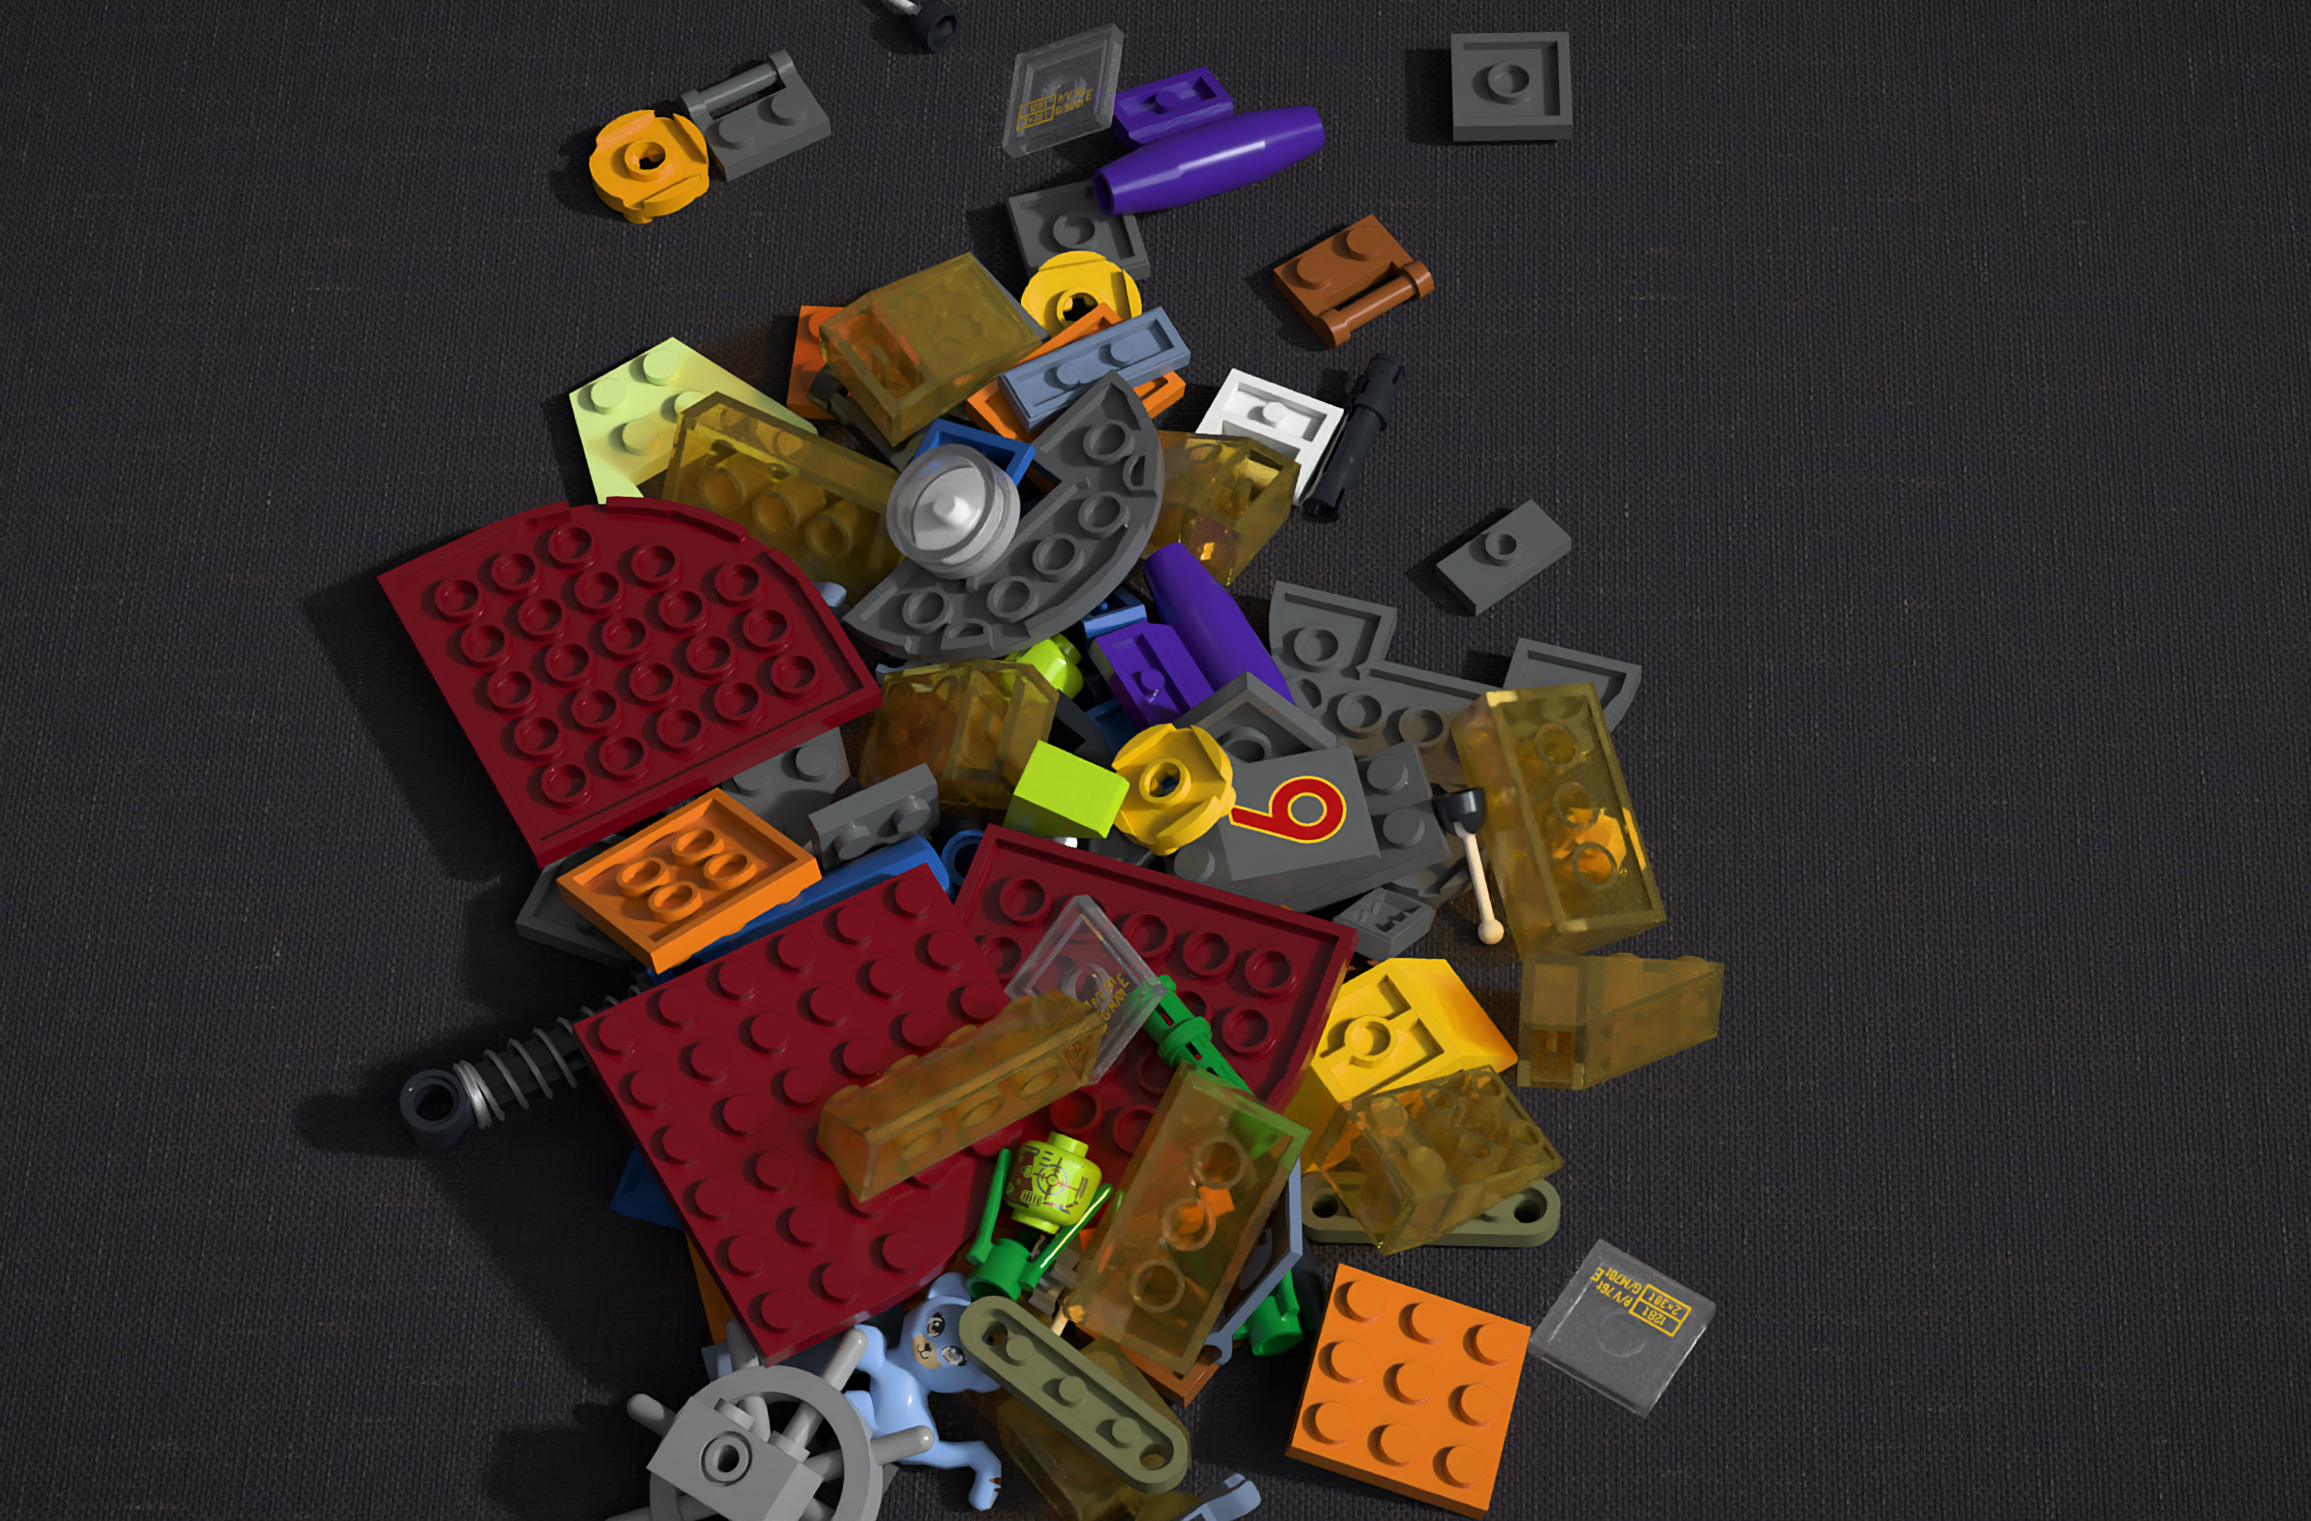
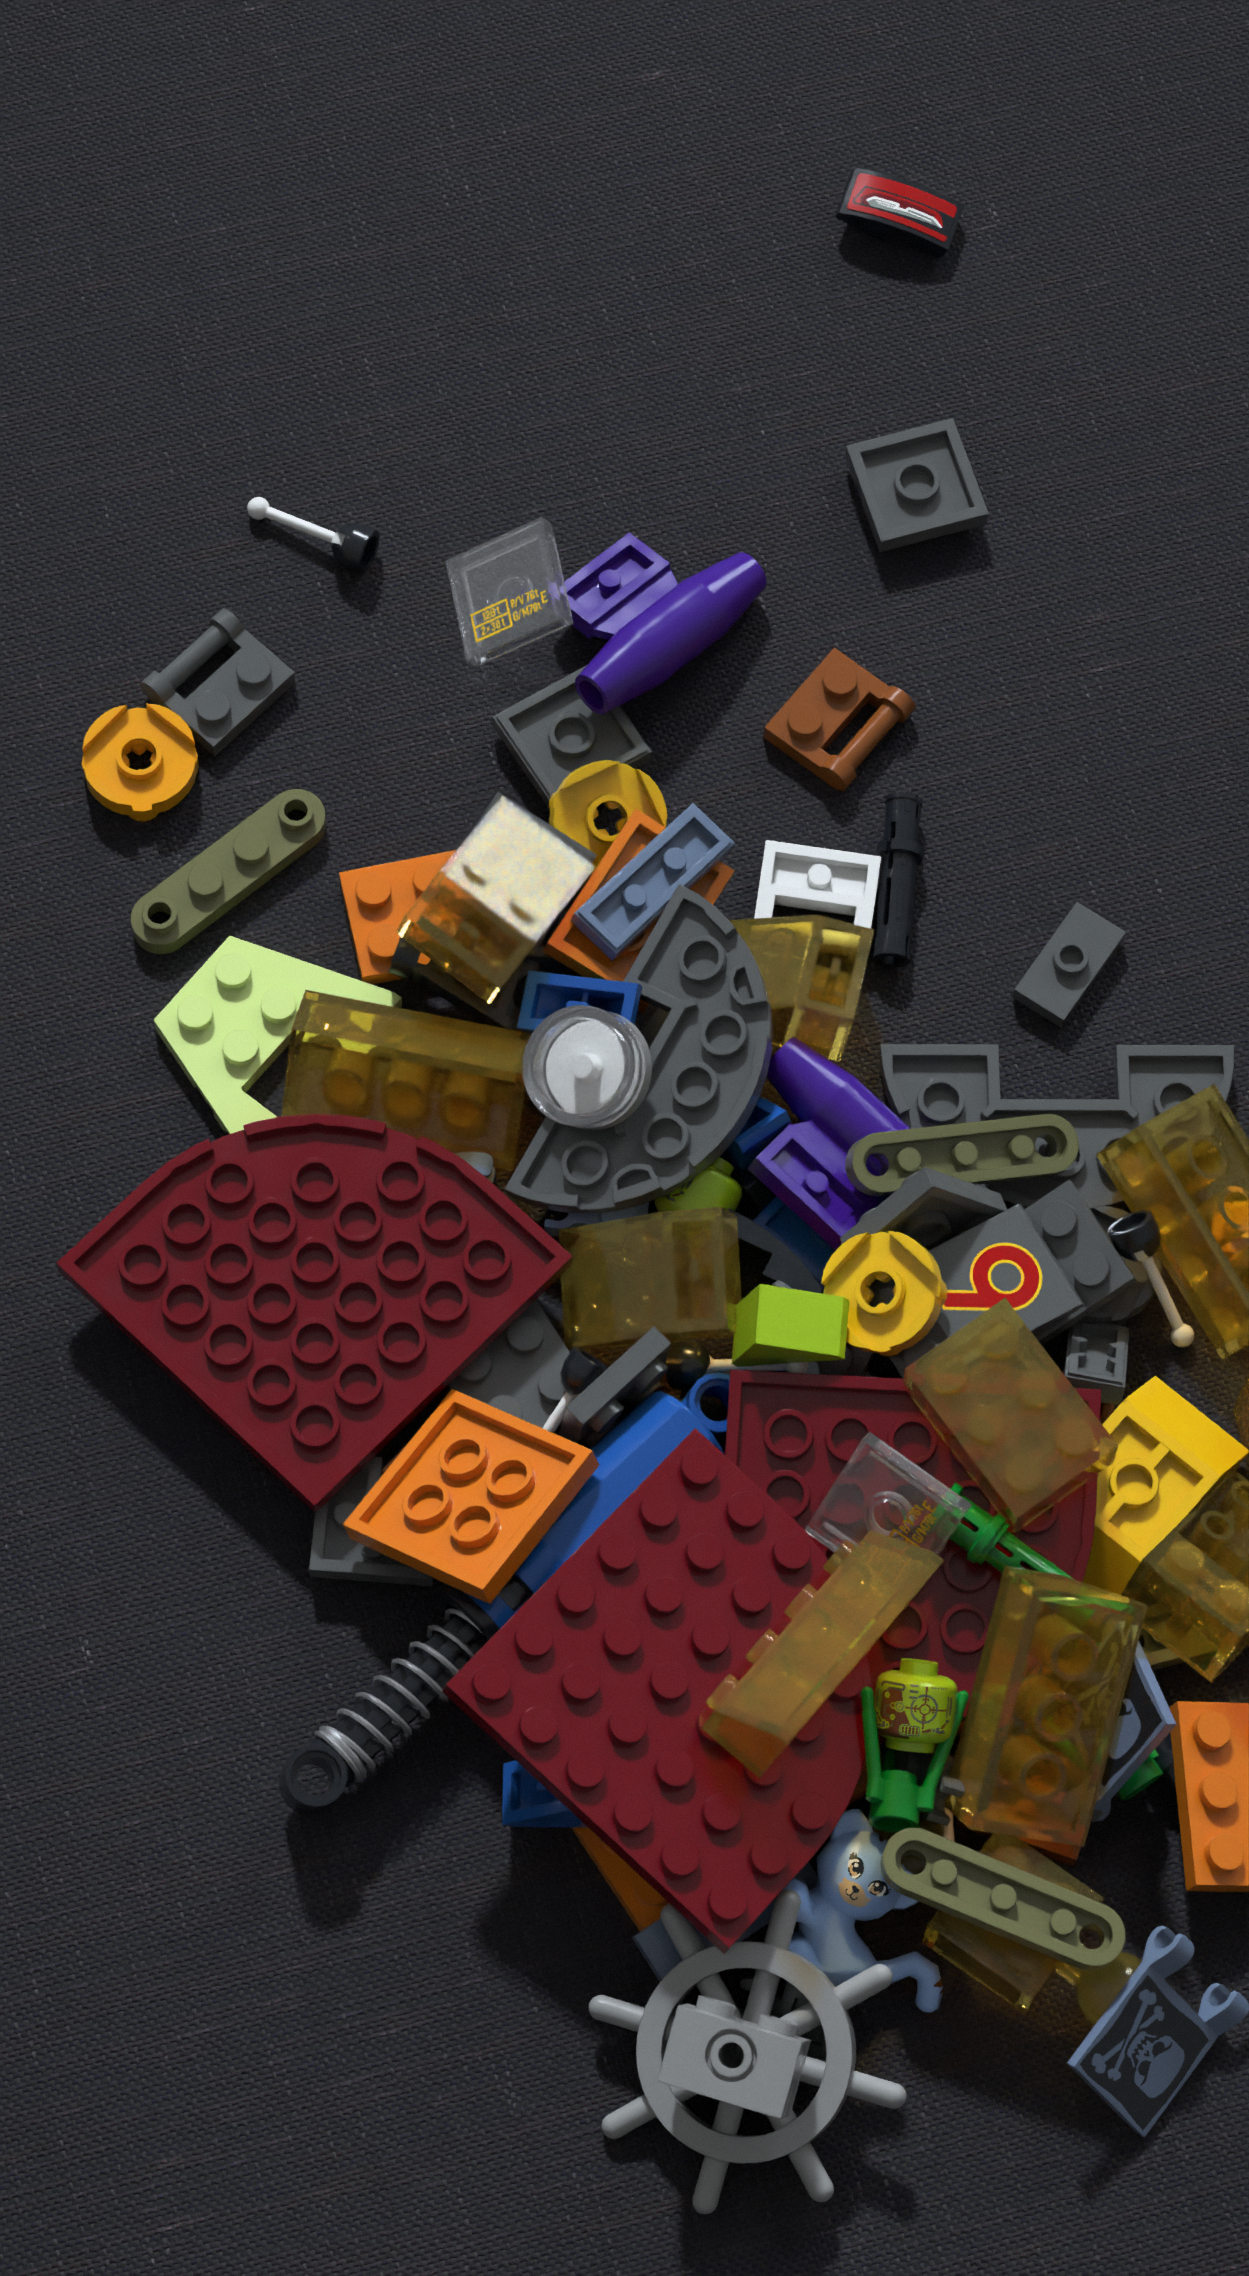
camera: 25 degrees left, 10 degrees up
(697, 283) = (228, 871): none -> olive plate
(1246, 924) = (1009, 1415): none -> clear yellow brick
(1326, 689) = (968, 1151): none -> olive plate

